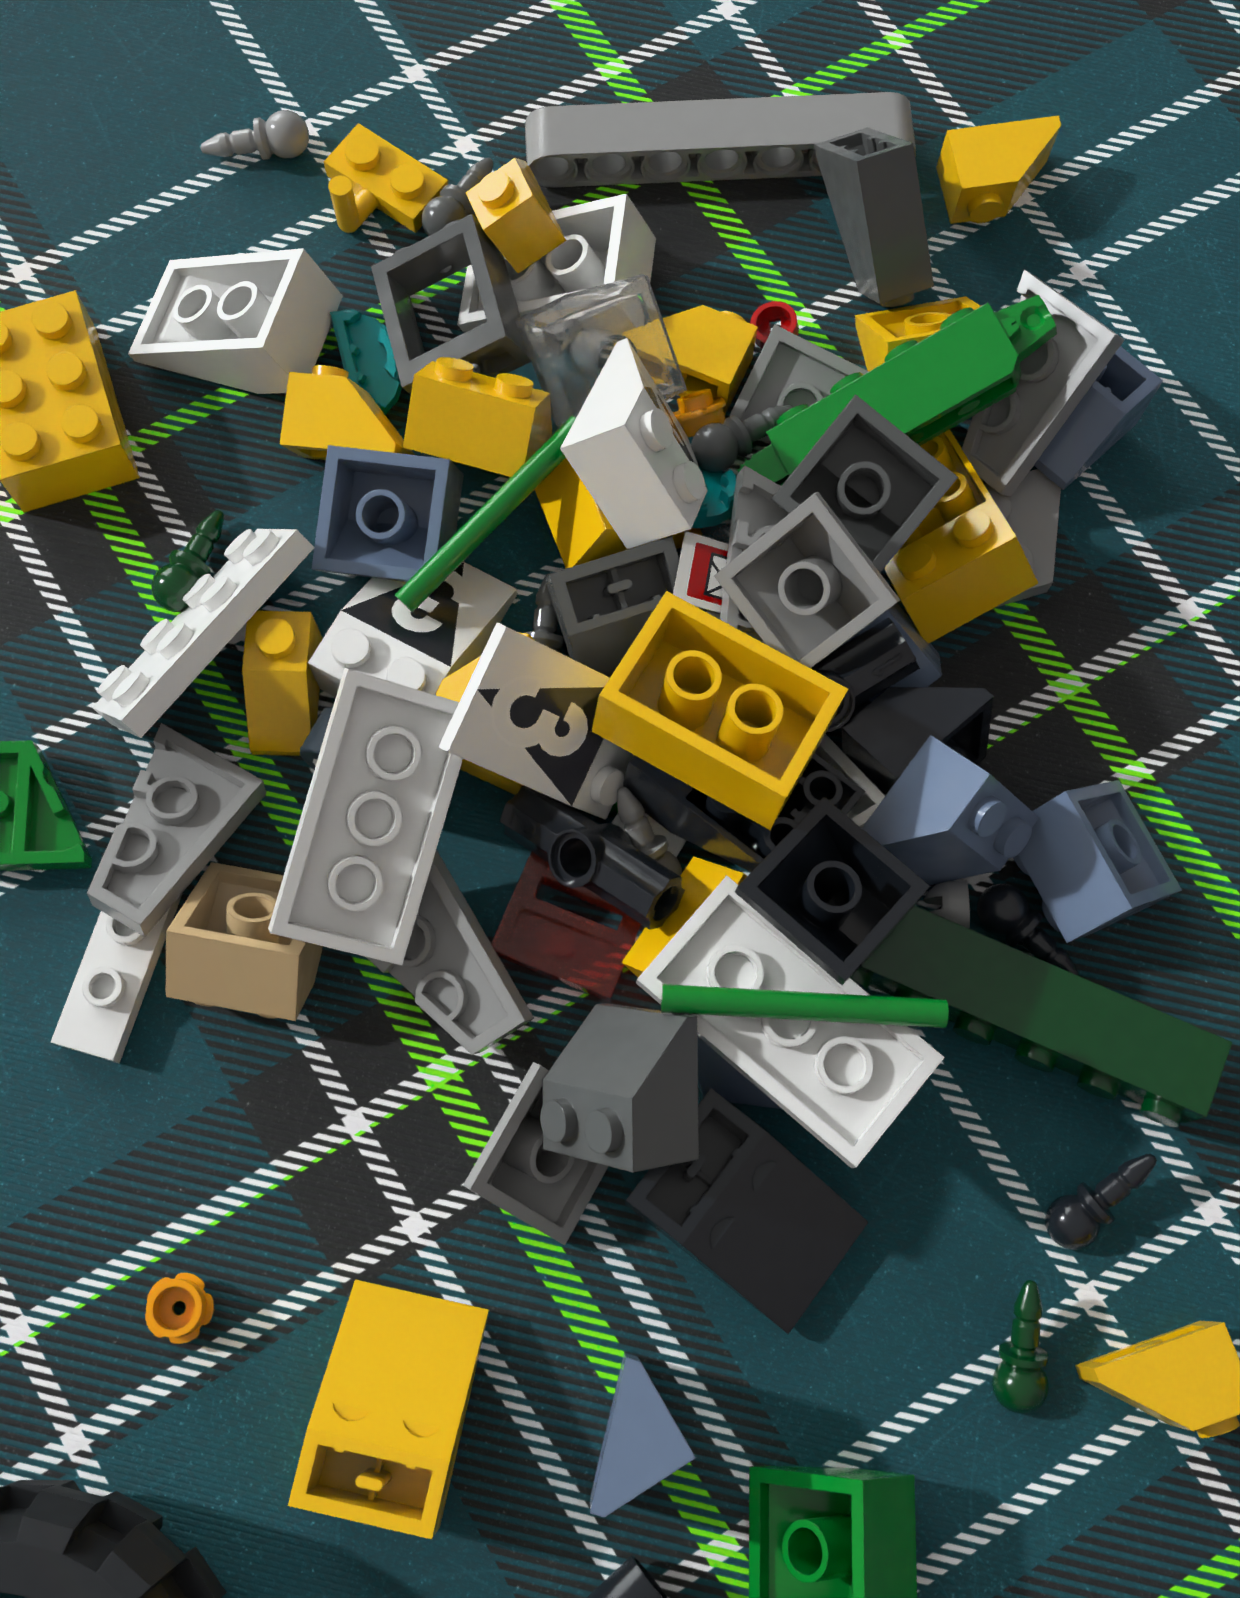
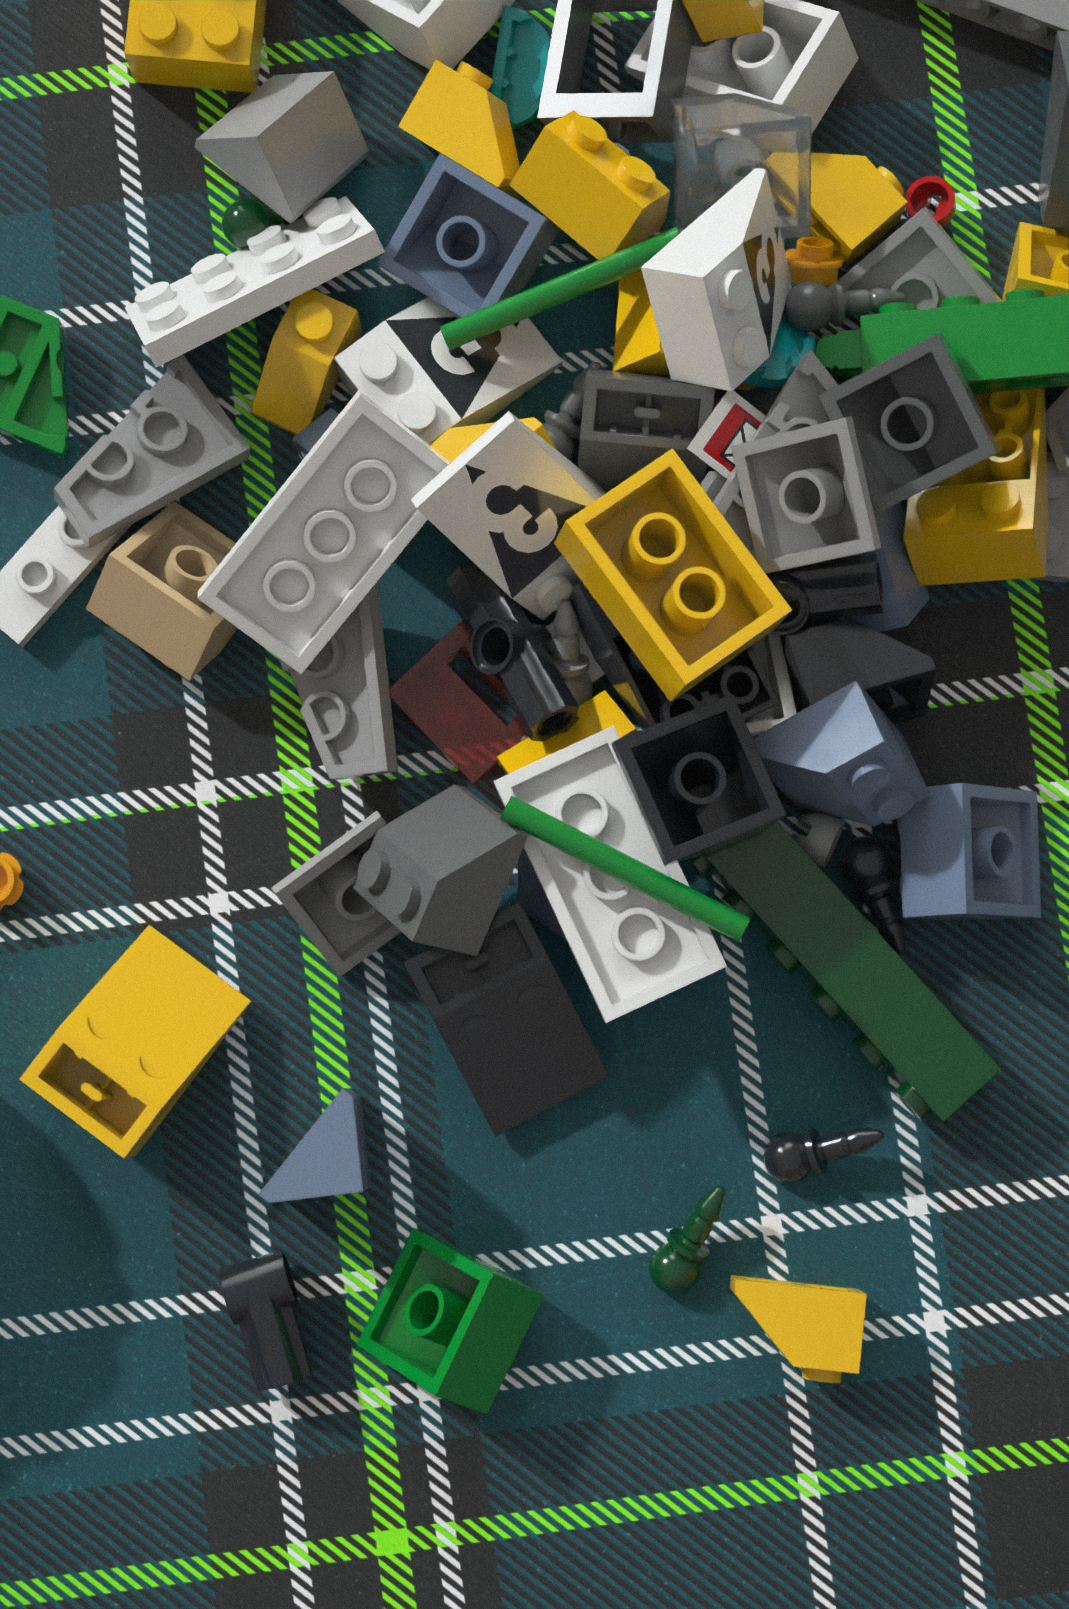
camera: 25 degrees right, 10 degrees up
(185, 499) = (288, 141): none -> light grey slope

